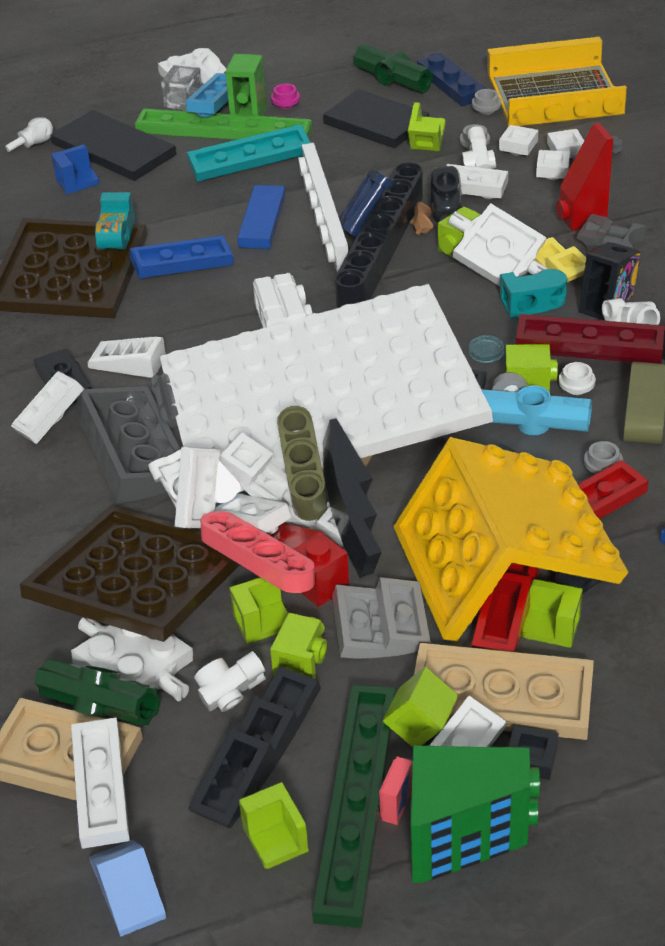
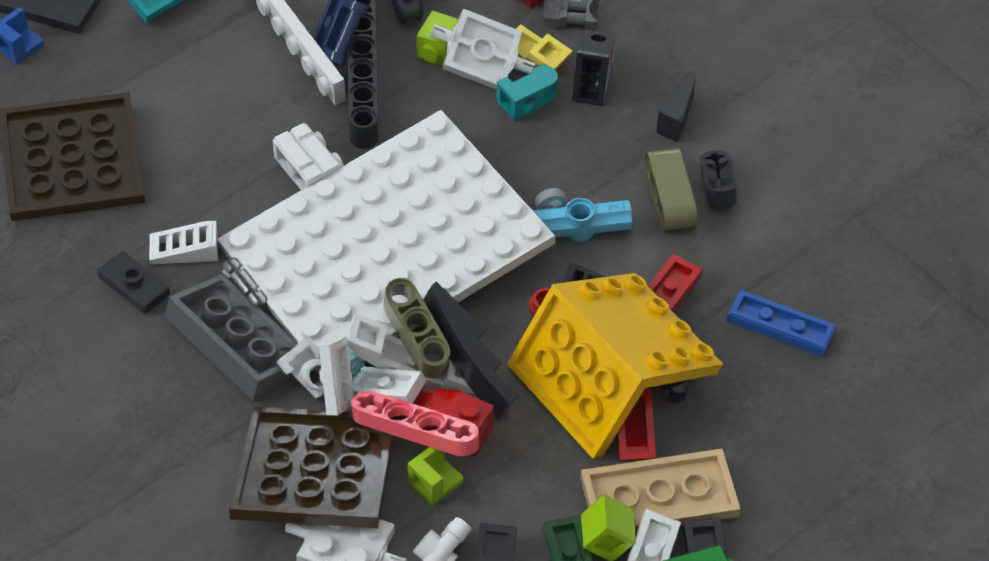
camera: 25 degrees left, 10 degrees up
(47, 407) = (144, 321): white plate -> none
(115, 220) = (104, 98): teal leg -> none
(181, 256) = (181, 120): blue tile -> none
(261, 217) = (233, 53): blue tile -> none
(299, 645) = (485, 500): lime brick -> none
(380, 619) = (534, 454): light grey slope -> none
(421, 218) = (392, 30): medium nougat piece -> none
(486, 348) = (507, 160): clear light blue piece -> none
(532, 363) = (560, 173): lime brick -> none
(553, 613) = (674, 413): lime panel -> none
(577, 378) = (601, 176): white plate -> none
(593, 338) = (602, 135): dark red fence -> none
(601, 456) = (654, 254): light grey plate -> none
(630, 312) = (622, 101): white plate -> none

